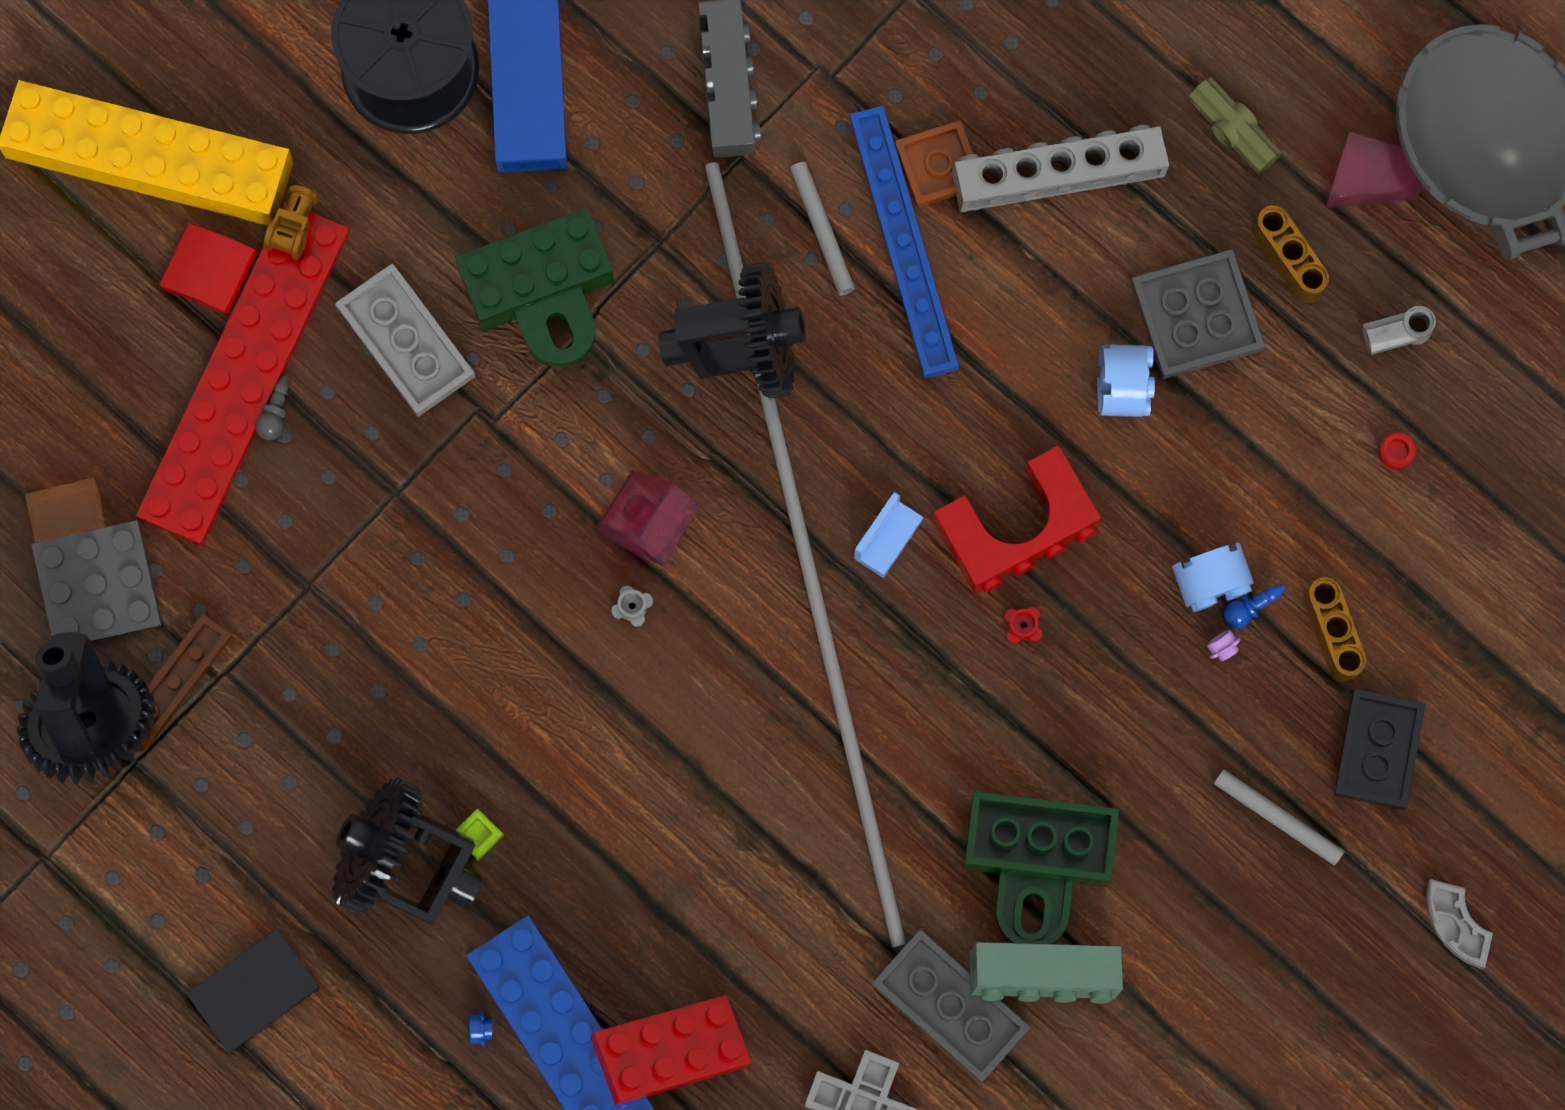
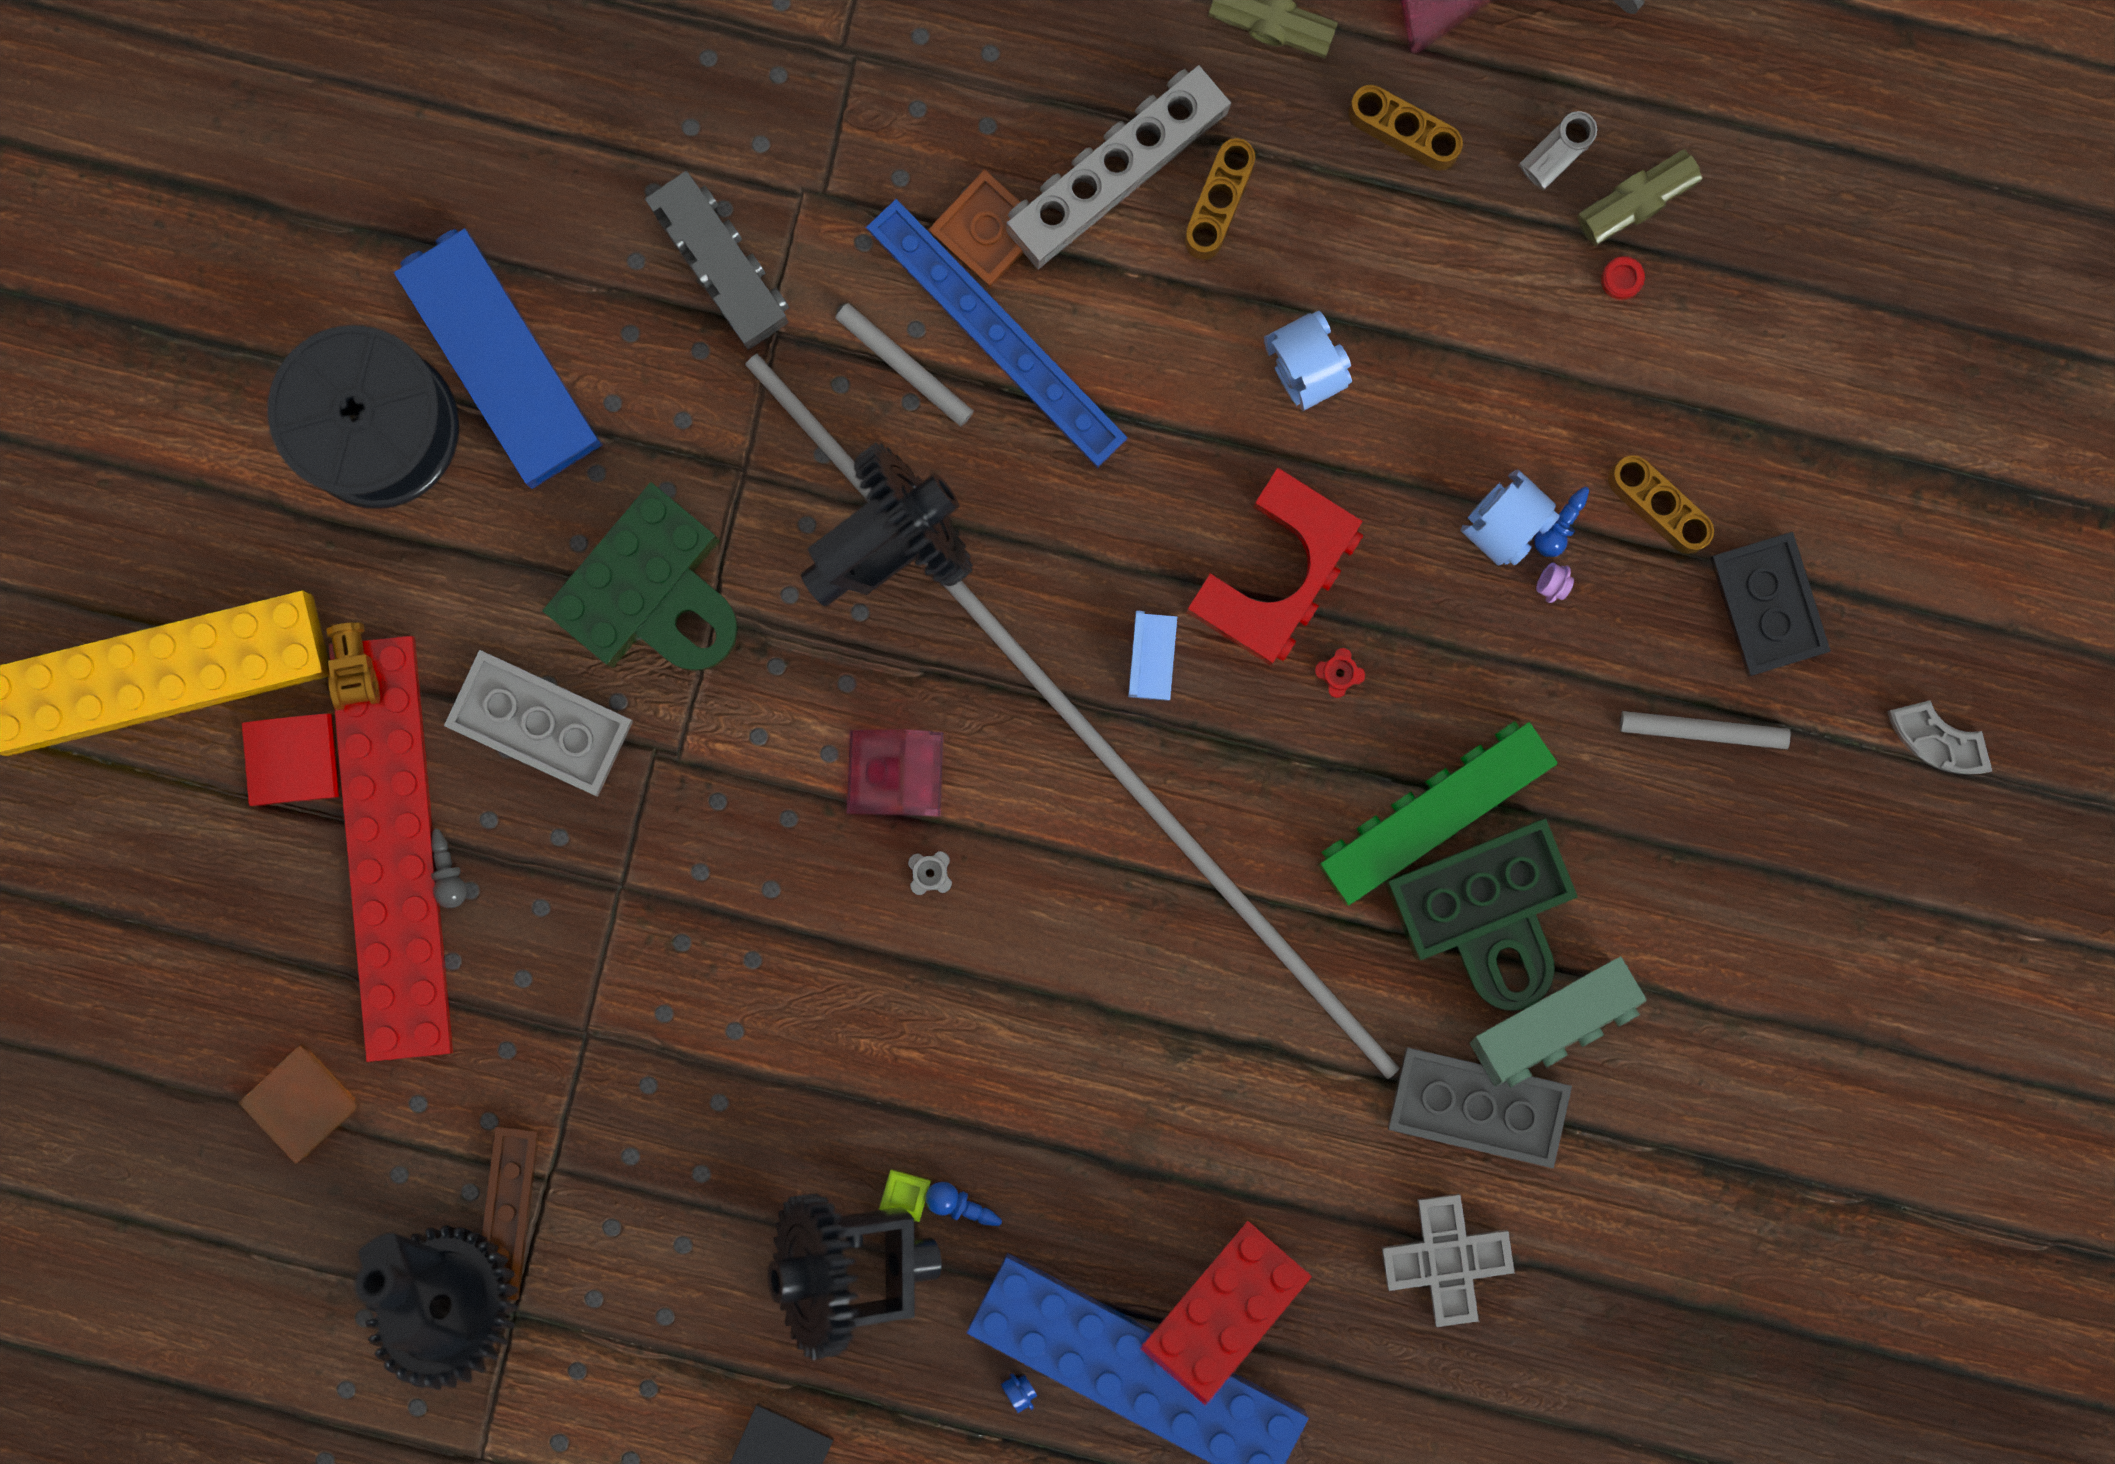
camera: 25 degrees left, 10 degrees up
(97, 582) = (368, 1156): dark grey plate -> none
(506, 852) = (944, 1199): none -> blue bar
(1040, 766) = (1437, 813): none -> green brick
(1131, 218) = (1220, 179): none -> pearl gold beam
(1197, 314) = (1342, 244): dark grey plate -> none
(1440, 397) = (1639, 197): none -> olive piece

